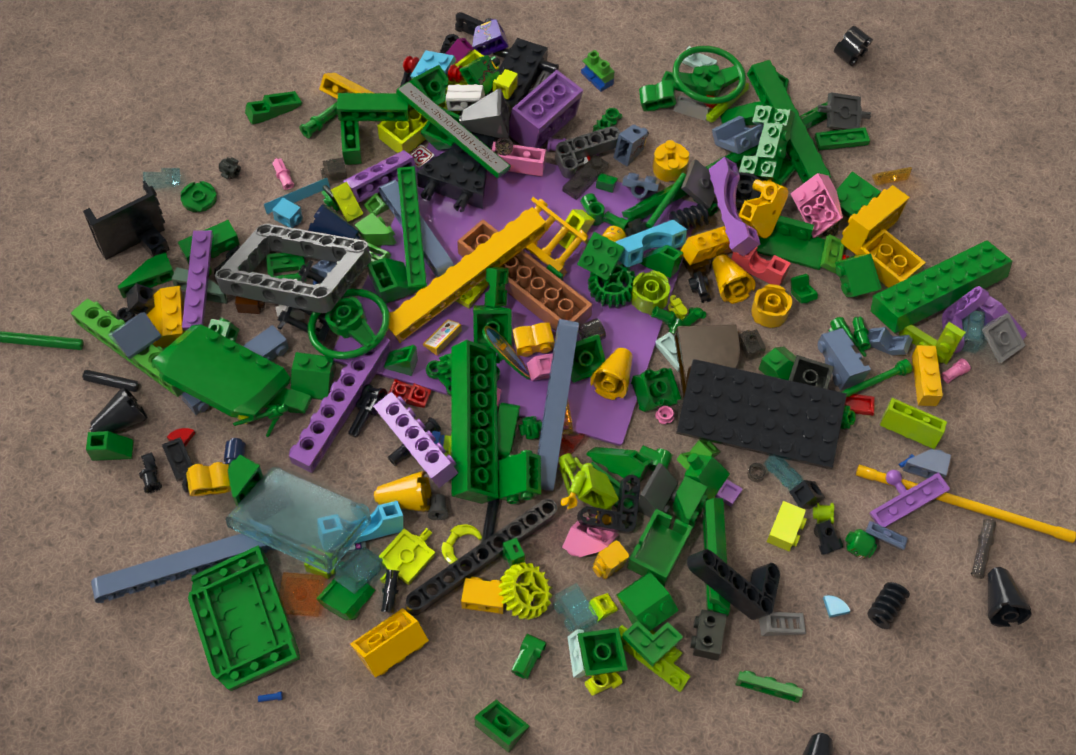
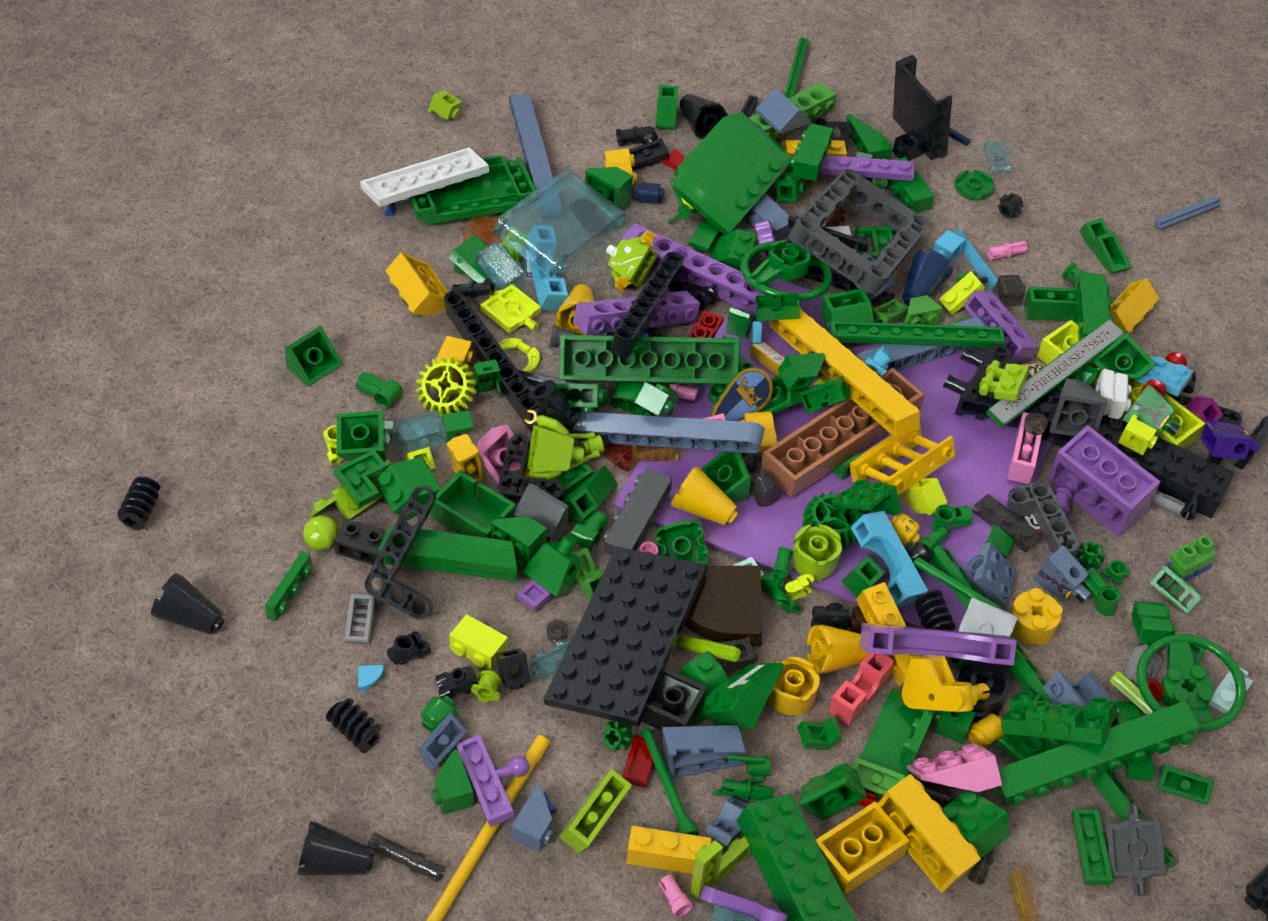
camera: 95 degrees right, 10 degrees down
(111, 664) = (445, 105): none -> lime brick
(194, 305) = (812, 152): none -> green brick
(223, 52) = (1187, 212): none -> sand blue axle
(241, 659) = (424, 177): none -> white plate
(294, 345) = (765, 233): none -> medium lavender piece
(341, 454) = (631, 260): none -> lime torso
(400, 320) = (777, 307): none -> green piece
(422, 346) = (756, 332): none -> medium azure tile
(424, 419) = (646, 305): none -> black beam
(456, 251) = (878, 361): none -> medium azure hips
(469, 156) = (1010, 380): none -> lime plate
(480, 299) = (800, 370): none -> green slope
(529, 406) = (657, 399): none -> brick
(552, 487) = (553, 404): none -> black animal
(563, 576) = (457, 423): none -> green panel
(620, 84) = (1182, 583): none -> slope
(636, 421) = (639, 511): none -> dark grey brick
(641, 119) = (1104, 595): none -> green piece
(703, 674) = (320, 532): none -> lime hair
(758, 353) = (715, 649): none -> lime axle
(793, 331) = (742, 696): none -> green slope
(804, 578) = (408, 647): none -> black plate
(918, 524) = (452, 786): none -> green slope

